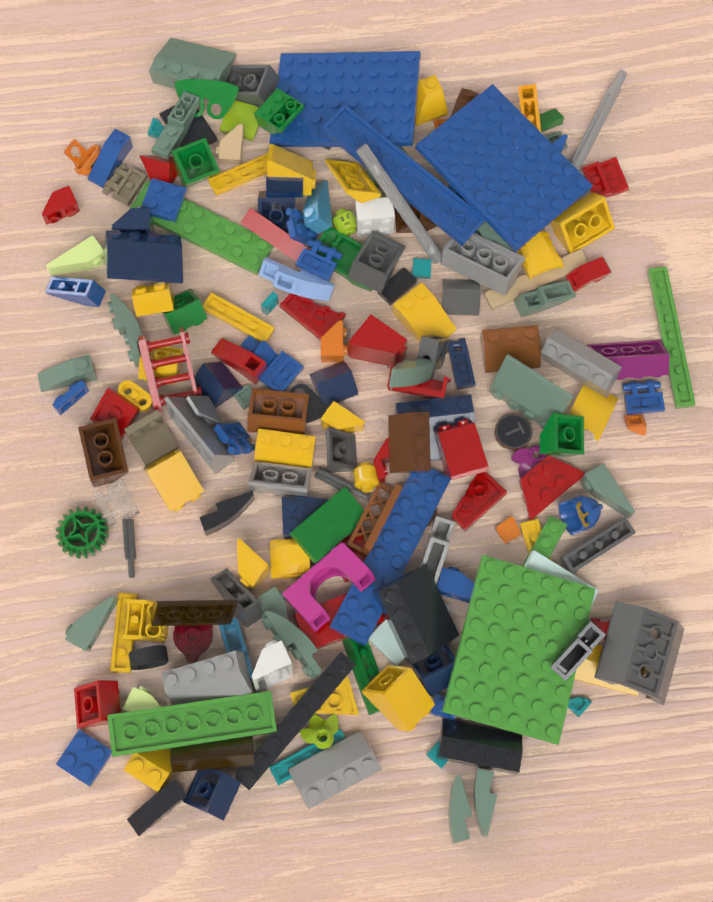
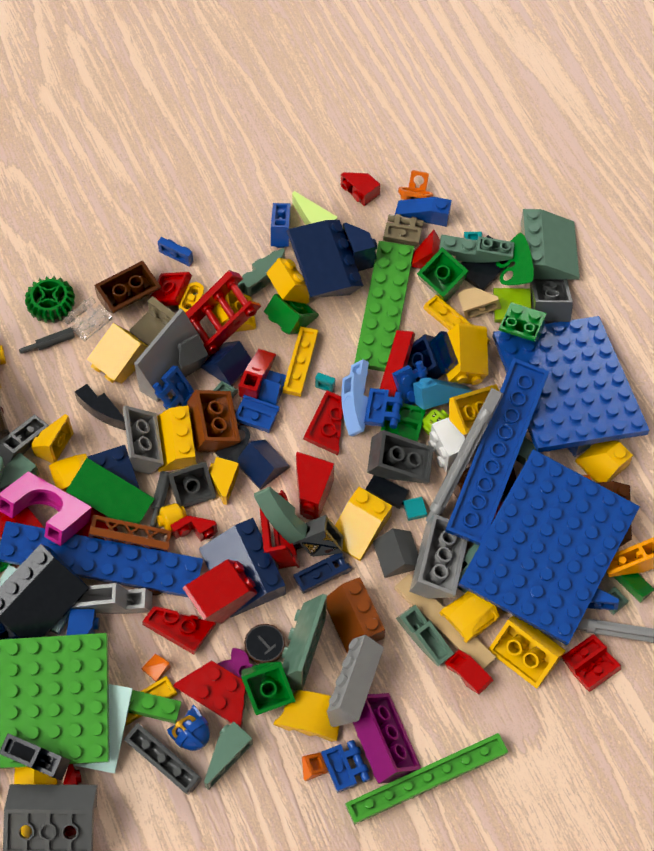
camera: 75 degrees right, 10 degrees down
(67, 373) = (199, 244): sand green slope -> none
(164, 199) = (396, 262): blue plate -> none
(332, 344) = (302, 444): orange slope -> none
(409, 442) = (212, 541): reddish brown slope -> none

